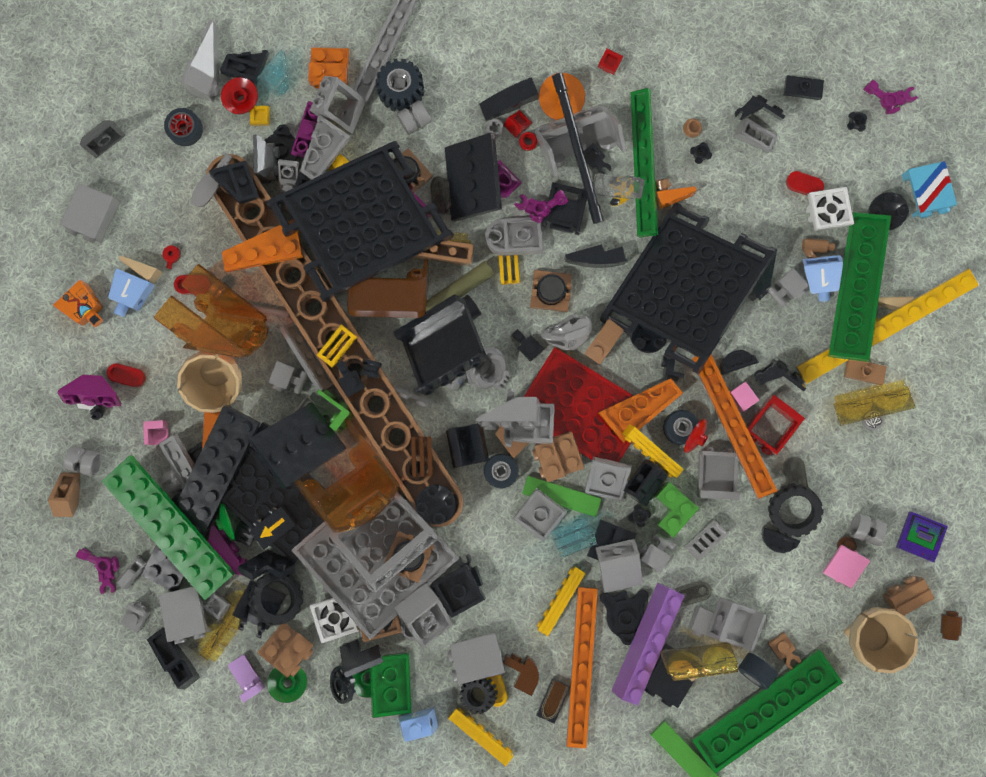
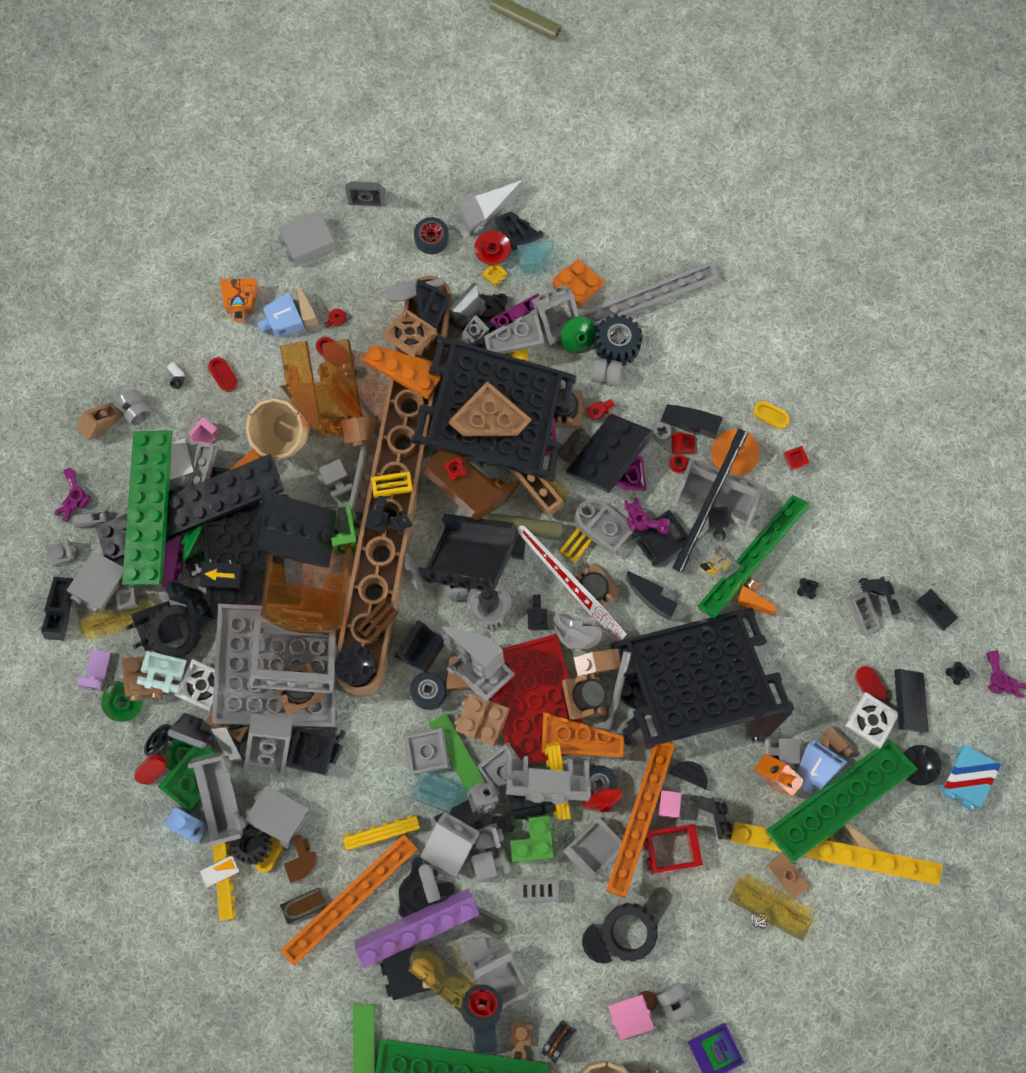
camera: 40 degrees right, 10 degrees down
(89, 391) = (186, 362): magenta slope -> none
(157, 469) = (180, 460): none -> white sticker
(241, 220) = (408, 334): none -> medium nougat piece
(271, 325) = (359, 429): none -> medium nougat slope
(293, 631) = (162, 666): none -> light aqua plate
(355, 710) = (150, 769): none -> red tile
(361, 107) = (573, 329): none -> green dish
(363, 228) = (489, 415): none -> medium nougat plate
(368, 294) = (449, 466): none -> red plate
(393, 642) = (226, 744): none -> white sticker
(426, 688) = (218, 797): none -> light grey windscreen
(434, 147) = (602, 407): none -> red piece
(473, 733) = (219, 871): none -> white sticker
(555, 303) = (585, 599): none -> sticker
(562, 44) = (771, 415): none -> yellow tile
(611, 510) = (483, 797): none -> light grey brick
(617, 374) = (586, 699): none -> piece
(628, 605) = (429, 883): none -> light grey bar
(636, 349) = (617, 691): none -> light grey bar
(640, 533) = (489, 837): none -> light grey bracket
(651, 463) = (547, 785): none -> light grey bracket
(692, 128) = (817, 563): medium nougat plate -> none
(752, 664) = (479, 1016): none -> wheel
(812, 307) = (784, 780): none -> orange torso
(815, 629) = (559, 1041): none -> black head
(845, 170) = (911, 701): none -> black tile

